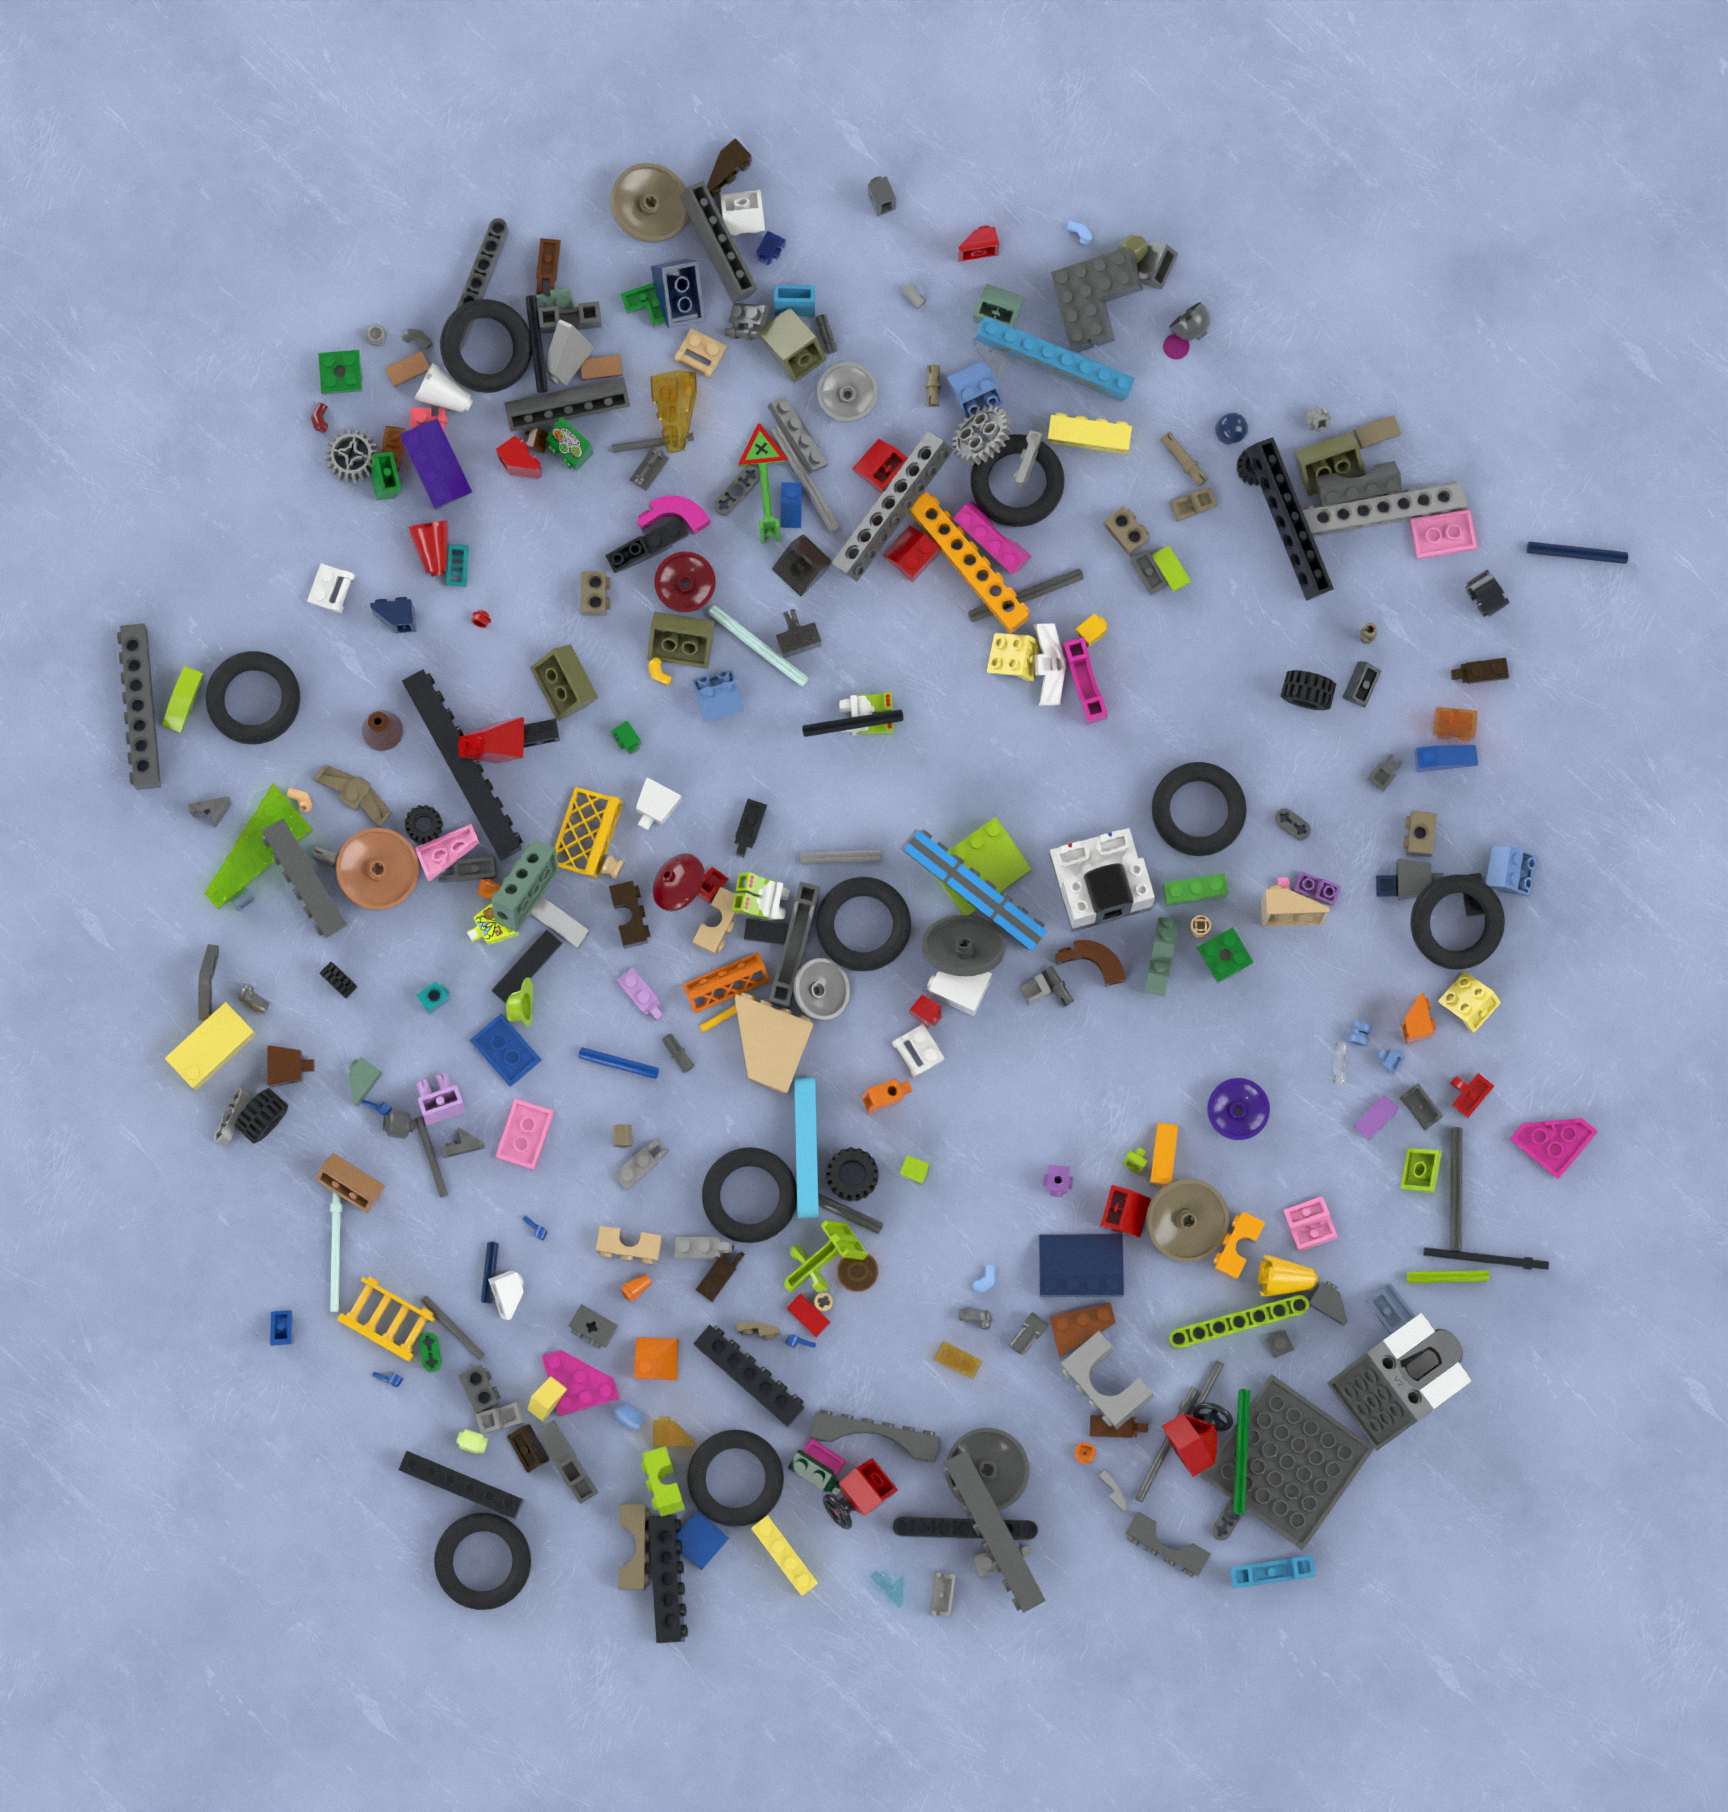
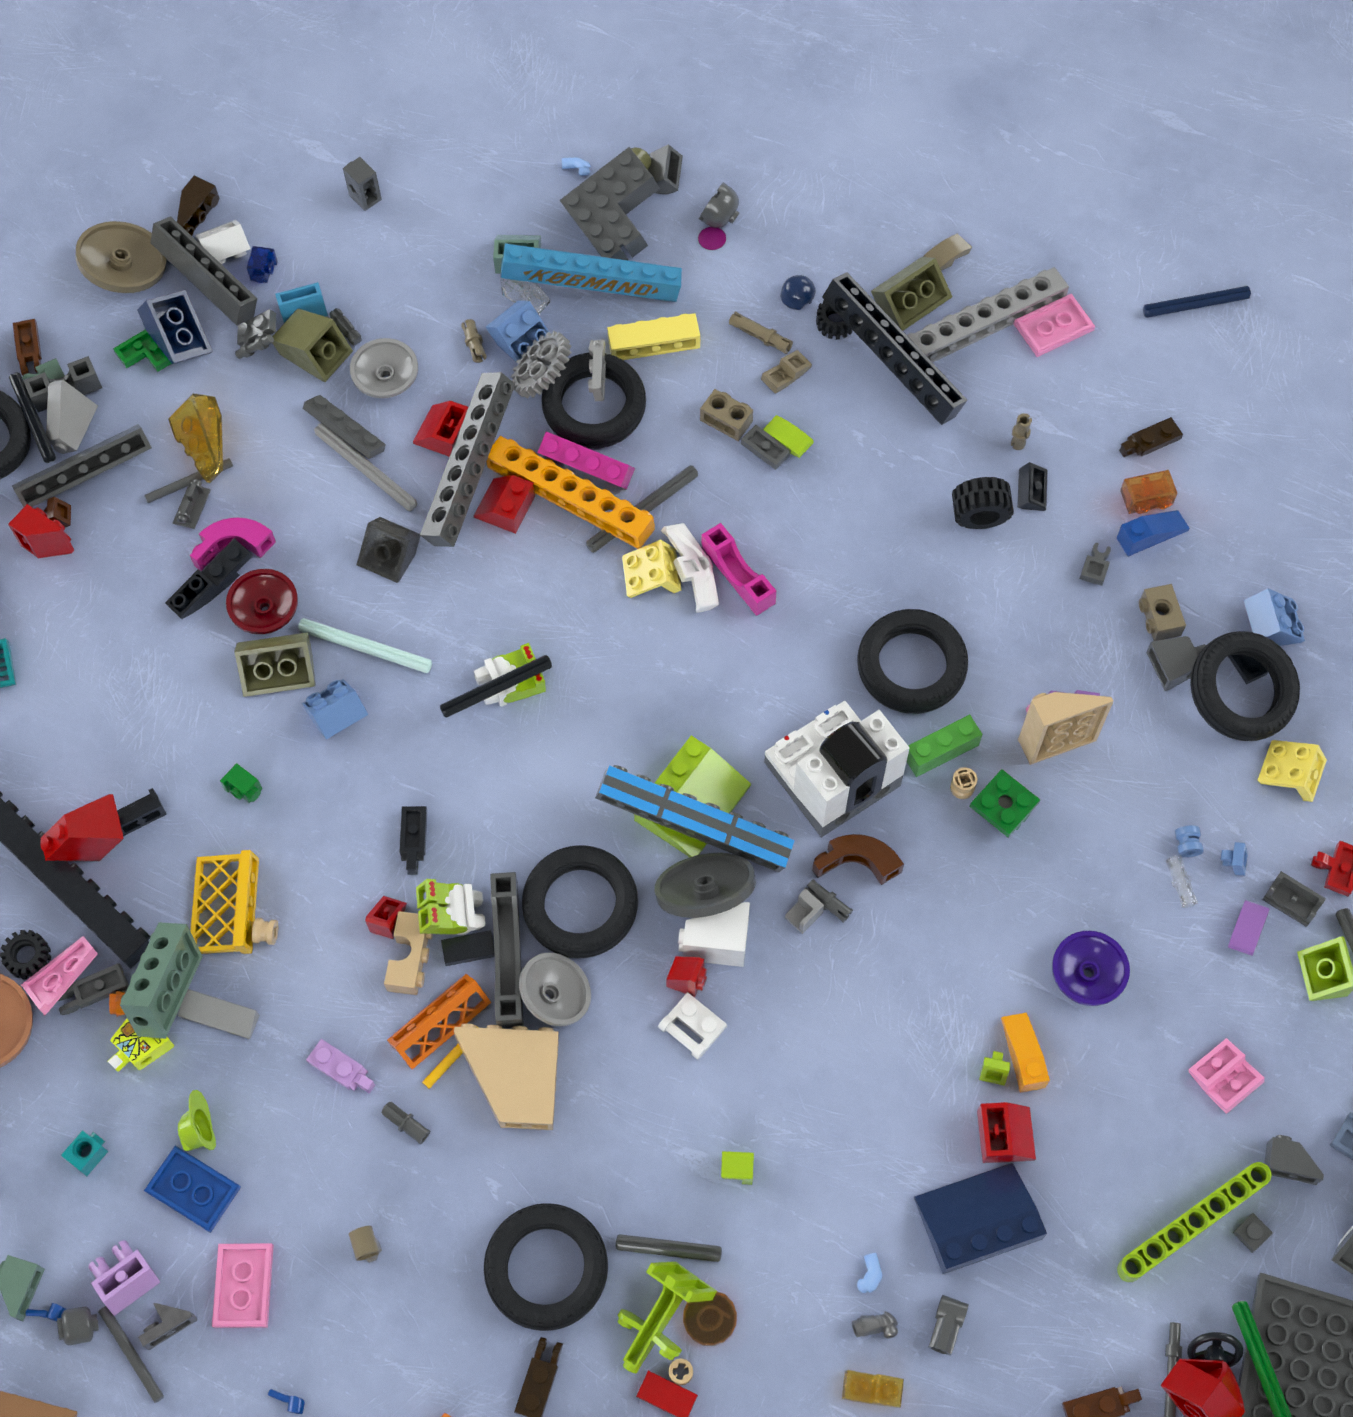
camera: 20 degrees left, 15 degrees down
(481, 619) = (40, 711): red plate -> none
(527, 965) = (193, 1077): black tile -> none
(564, 682) = (153, 747): olive slope -> none
(569, 445) = (94, 503): slope -> none
(590, 593) = (160, 646): dark tan brick -> none
(601, 367) = (111, 425): medium nougat tile -> none
(618, 1063) = (336, 1158): blue axle -> none
(634, 932) = (290, 960): dark brown arch -> none
(639, 1165) = (398, 1275): light grey hinge -> none
(646, 1249) = (436, 1381): tan arch -> none
(656, 672) = (258, 707): yellow arm -> none
(656, 803) = (297, 845): white torso -> none
(678, 882) = (347, 921): dark red dish -> none
(700, 1247) = (504, 1354): light grey hinge -> none
(703, 347) = (217, 376): tan plate -> none
(723, 498) = (294, 509): dark grey beam -> none
(763, 451) = (310, 453): bright green piece -> none
(791, 505) = (357, 493): blue slope -> none
(797, 638) = (406, 622): clear smoke brick -> none
(806, 1147) = (597, 1185): medium azure beam -> none
(840, 857) = (528, 838): light grey axle -> none
(852, 1156) = (659, 1175): black tyre -> none
(878, 1099) = (671, 1089): orange torso -> none
(913, 295) = (419, 263): light grey pin -> none
(979, 244) = (478, 201): red slope -> none
(1061, 1173) = (915, 1113): medium lavender brick -> none
(1078, 1326) = (1005, 1293): dark orange wing -> none
(1092, 629) = (728, 514): yellow brick -> none
(1115, 1408) = (1091, 1383): light grey arch -> none
(1161, 956) = (934, 828): sand green arch -> none
(1187, 1220) = (1084, 1117): dark tan dish -> none
(1208, 1385) = (1189, 1315): dark grey bar -> none
(1245, 1228) = (1152, 1150): light orange arch -> none
(1284, 1277) = (1224, 1147): yellow cone -> none
(1289, 828) = (1019, 647): dark grey beam -> none
(1317, 418) = (882, 256): light grey gear -> none
(1337, 489) = (936, 307): dark grey arch -> none
(1386, 885) = (1147, 678): dark blue tile -> none
(1417, 1023) = (1250, 804): orange slope -> none
(1487, 593) = (1126, 359): black brick -> none

